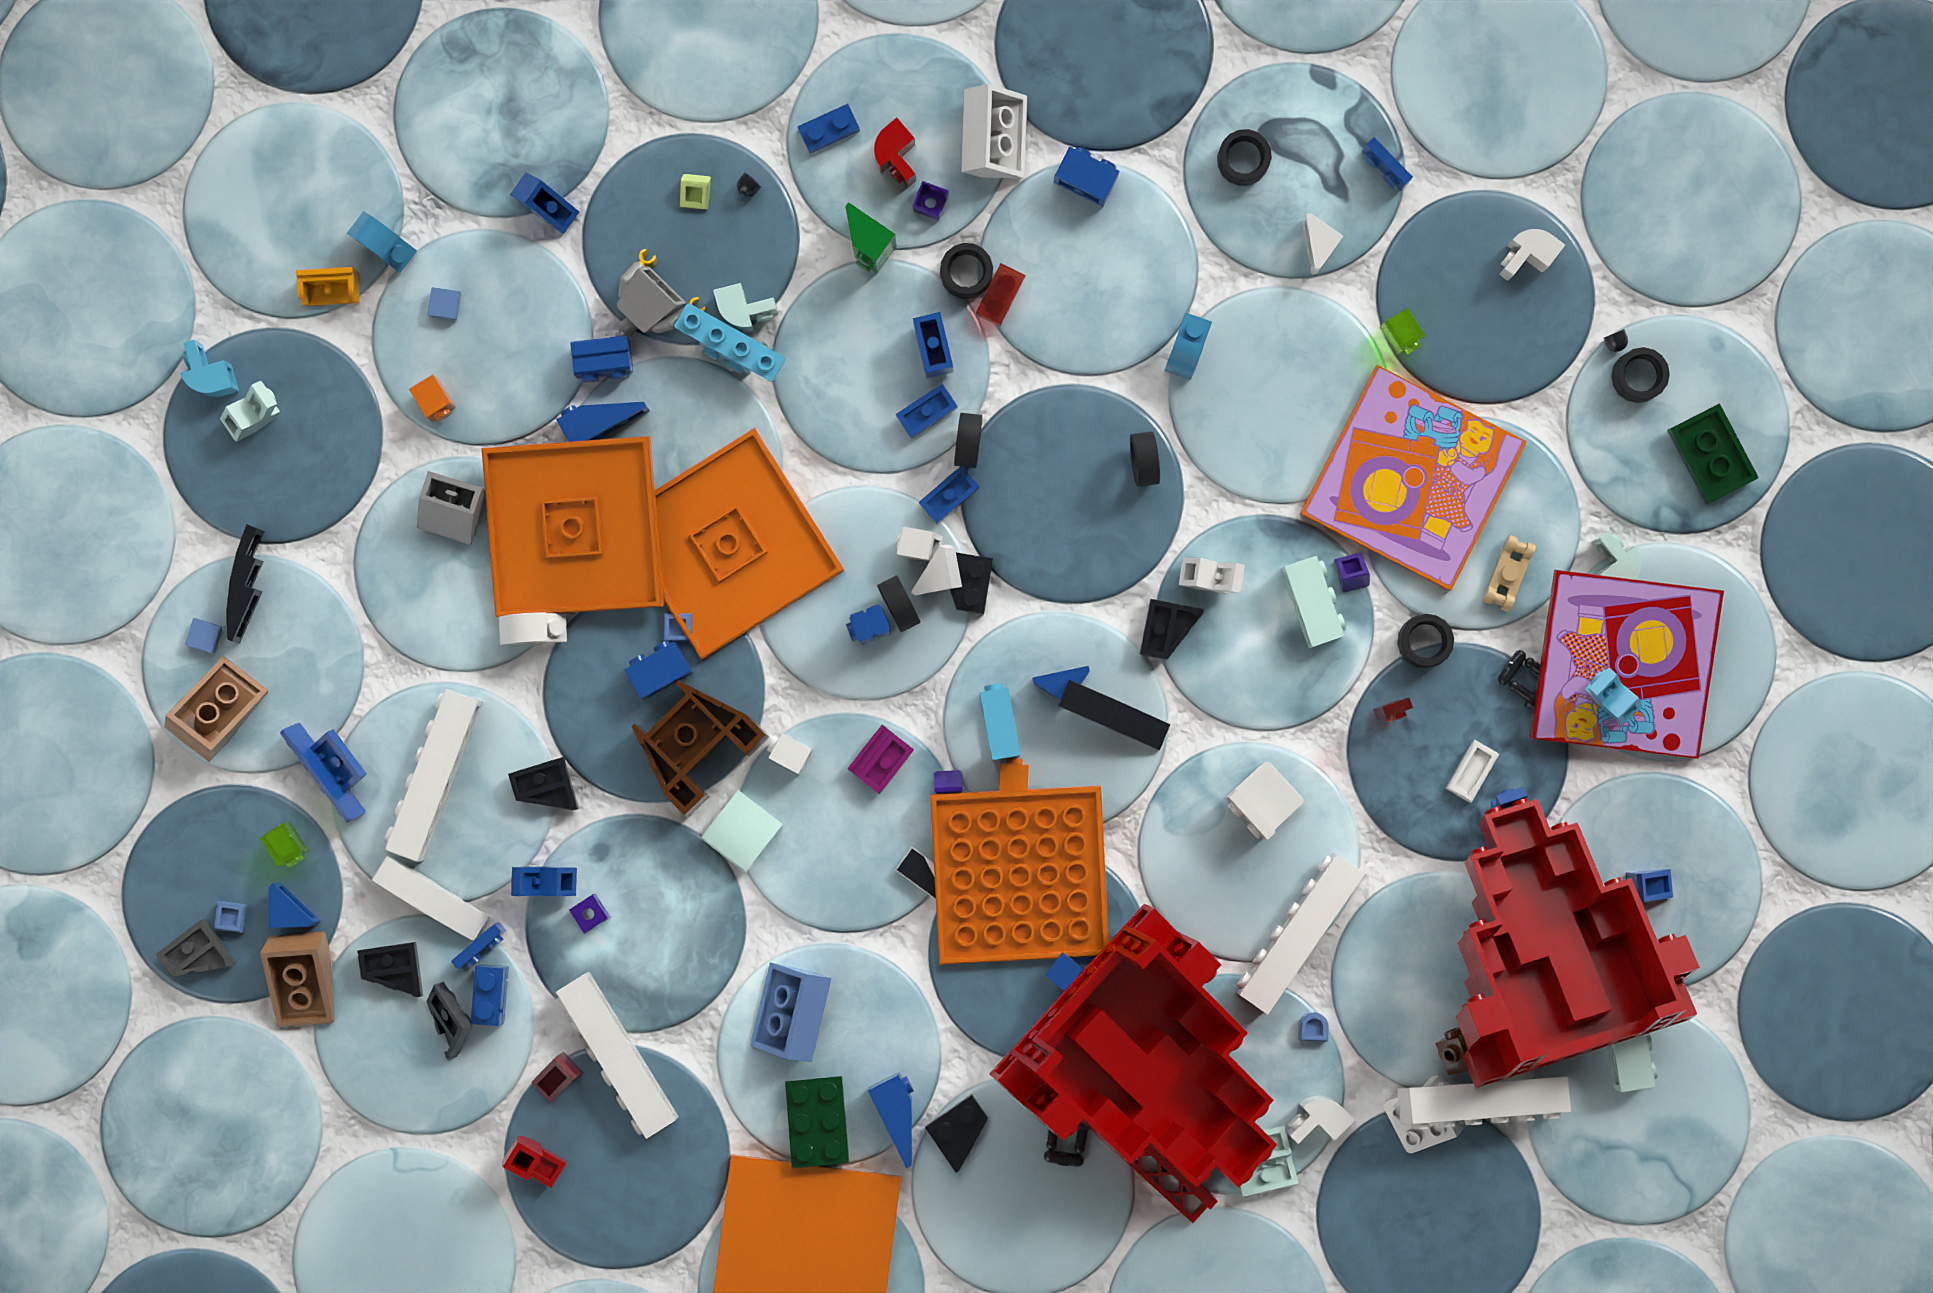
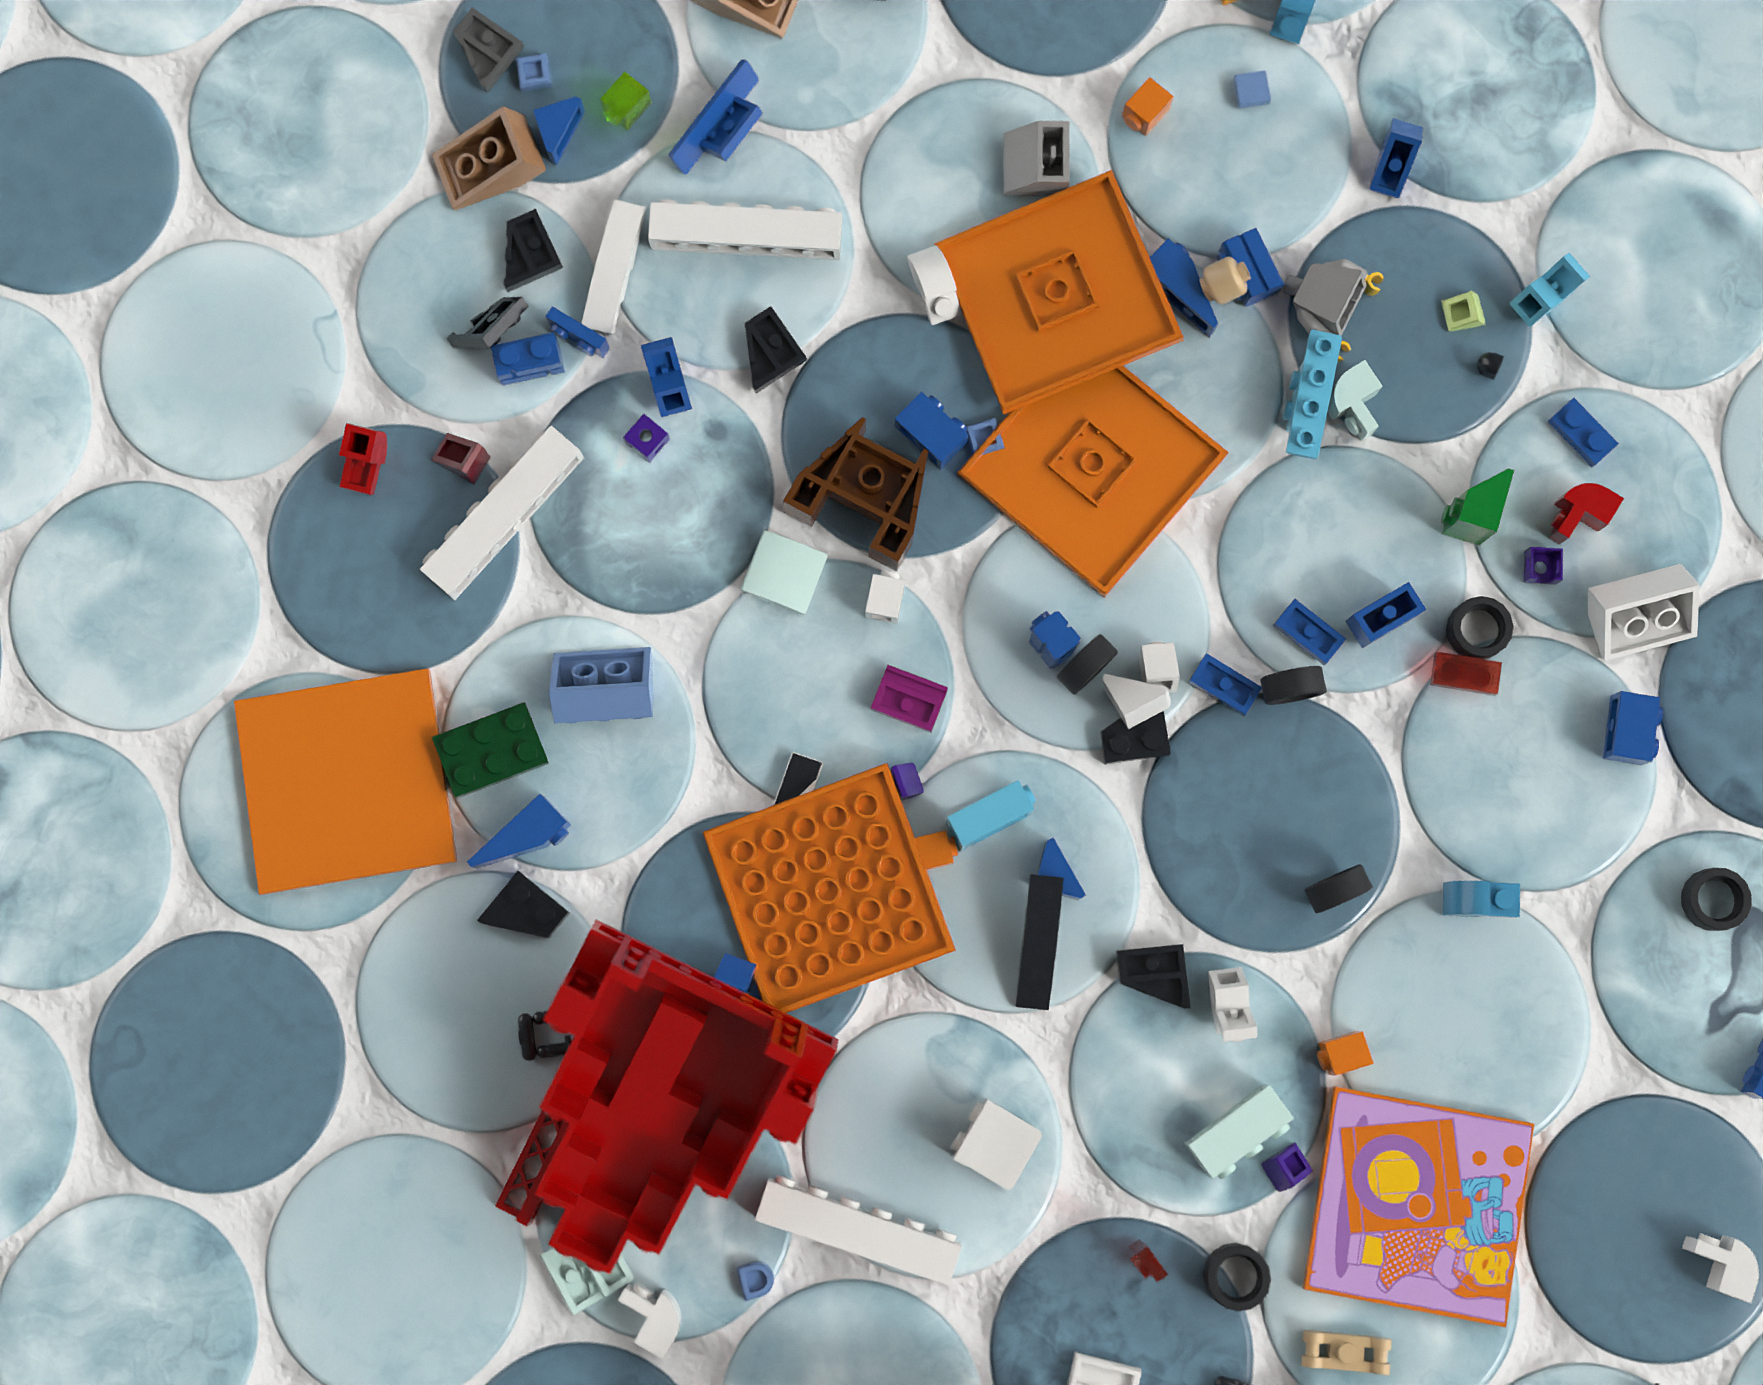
camera: 75 degrees right, 5 degrees down
(609, 384) = (1225, 280): none -> tan head
(701, 116) = (1549, 290): none -> medium azure brick
(1277, 497) = (1344, 1053): none -> orange brick
(1320, 241) = (1653, 1015): white slope -> none
(1403, 332) = (1581, 1142): clear neon green brick -> none

